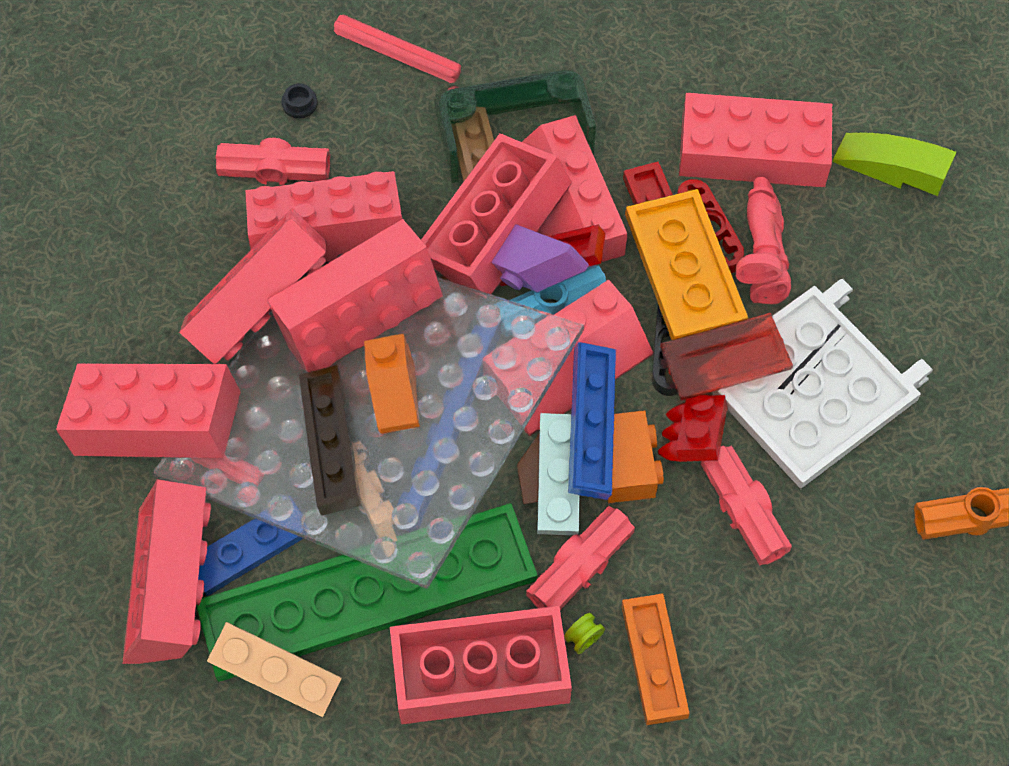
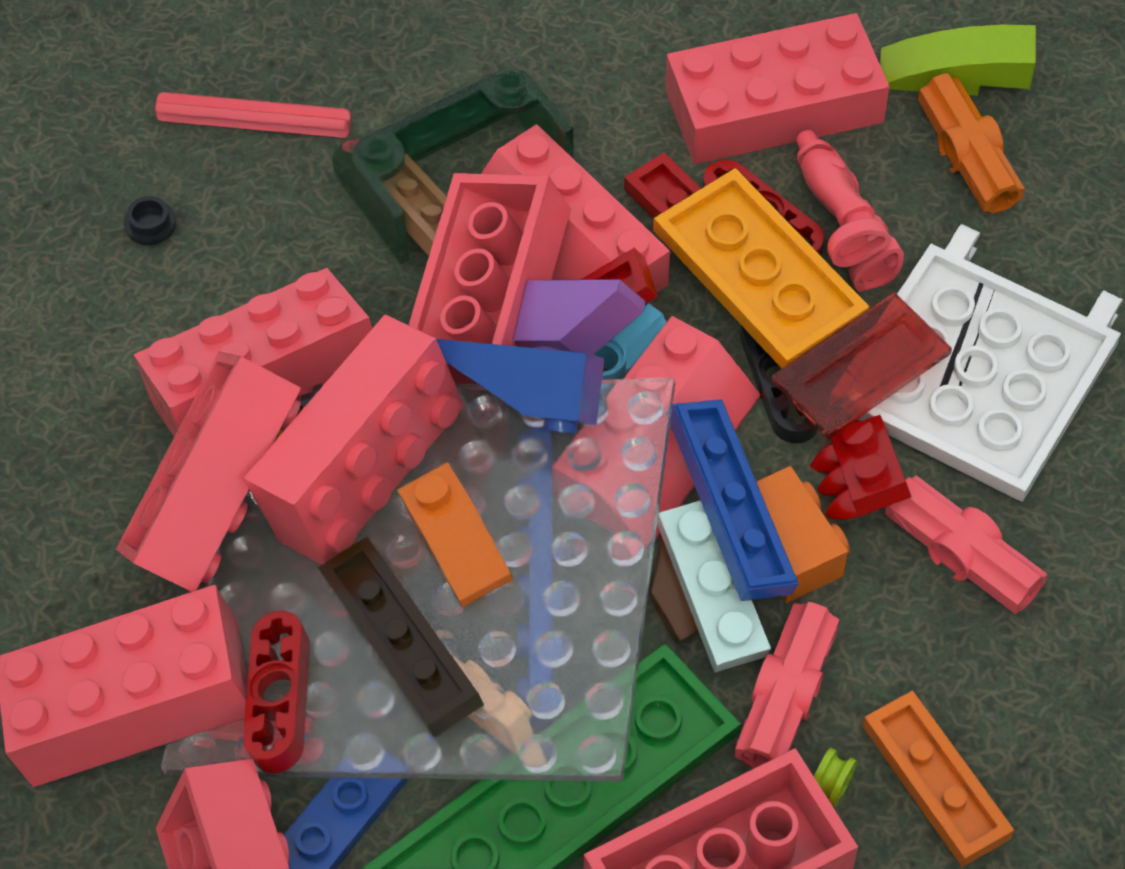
camera: 20 degrees left, 5 degrees down
(243, 464) = (287, 712): none -> red beam
(273, 161) = (148, 309): coral piece -> none
(485, 296) = (536, 382): none -> blue slope
(877, 222) = (971, 143): none -> orange piece

